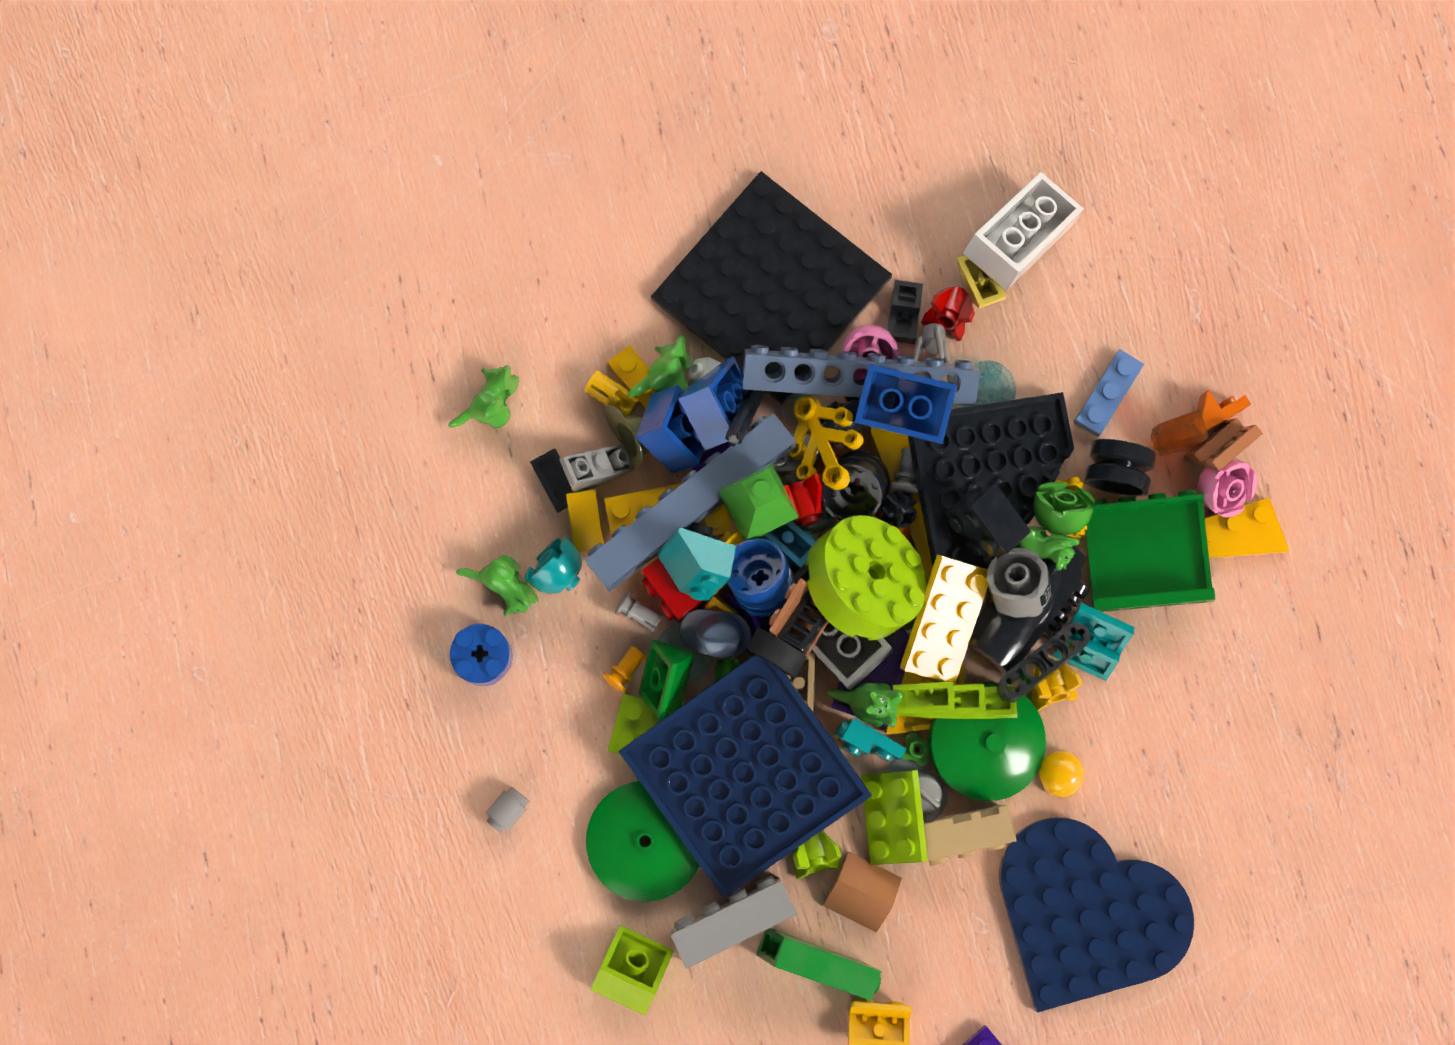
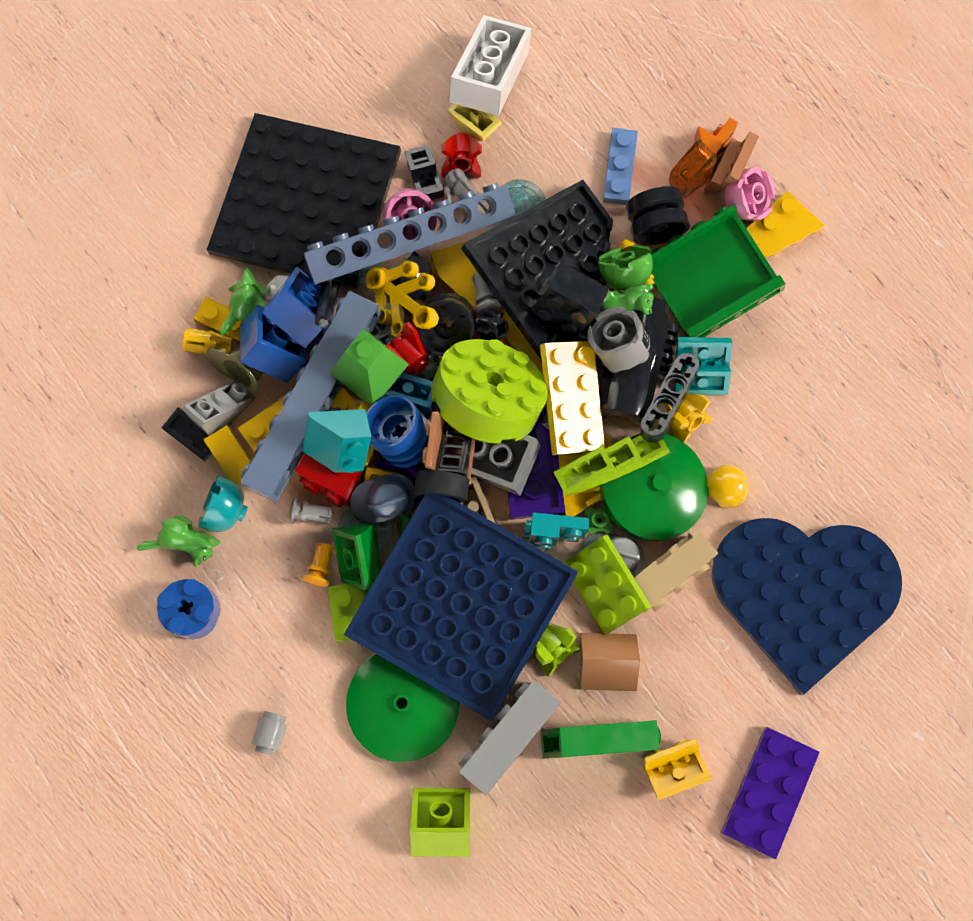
camera: 20 degrees left, 5 degrees down
(490, 404) = (105, 393): bright green animal -> none
(871, 702) = (542, 495): bright green animal -> none
(906, 403) = (456, 232): blue slope -> none

